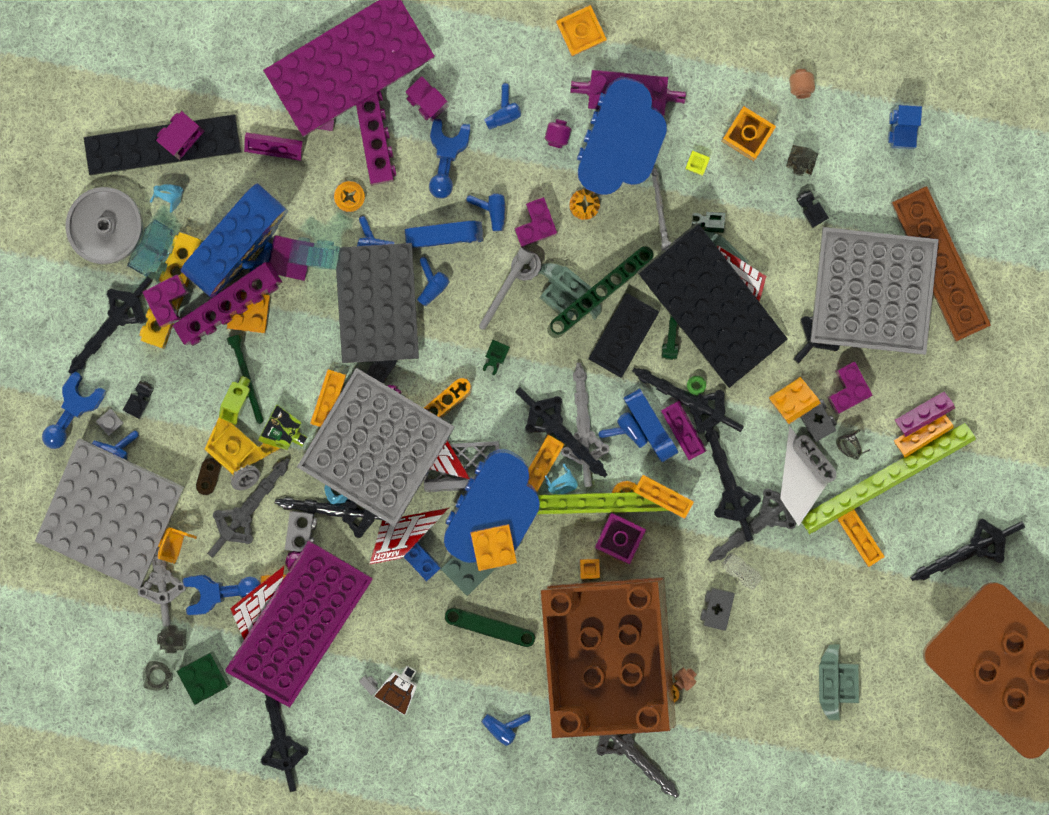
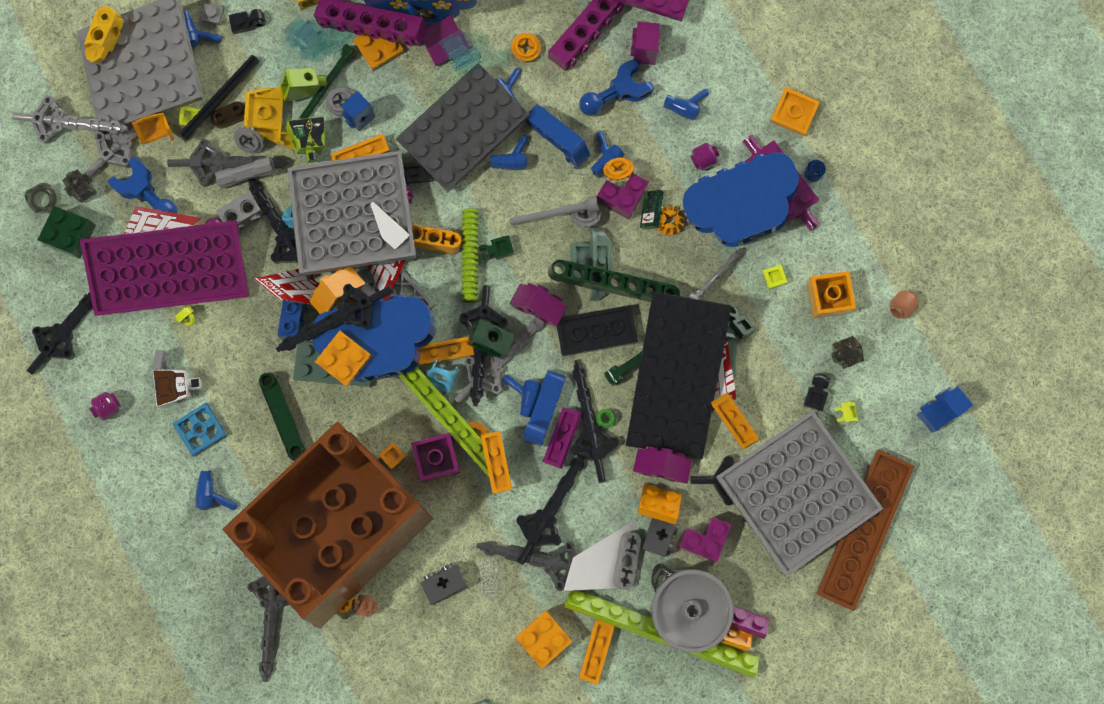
camera: 50 degrees right, 10 degrees down
(70, 539) = (102, 34): none -> yellow piece
(103, 613) = (60, 121): none -> light grey bar
(185, 509) = (186, 115): none -> neon yellow plate
(188, 472) = (219, 97): none -> black axle
(195, 365) = (305, 38): none -> clear light blue brick
(262, 381) = (333, 98): none -> light grey gear
(268, 504) = (233, 175): none -> light grey axle
(295, 375) = (357, 111): none -> blue brick
(346, 636) = (185, 313): none -> neon yellow tile
(369, 754) = (104, 406): none -> magenta head
(416, 429) = (388, 228): none -> white sticker
(430, 509) = (330, 289): none -> light orange brick
(459, 713) = (207, 442): none -> dark azure piece
(460, 518) = (344, 313): none -> black bar
(484, 383) = (469, 255): none -> lime piece
(509, 208) = (618, 164): none -> light orange gear
(556, 429) = (480, 340): none -> dark green brick
(565, 211) = (651, 209): none -> clear green tile
(565, 363) = (539, 303): none -> magenta brick
(641, 54) = (815, 166): none -> clear blue wheel
(768, 373) = (662, 464): none -> magenta brick
(781, 291) = (735, 420): none -> light orange plate
(819, 569) = (543, 639): none -> light orange brick
(846, 198) = (849, 412): none -> neon yellow tile
(892, 444) = (692, 611): none -> light grey dish

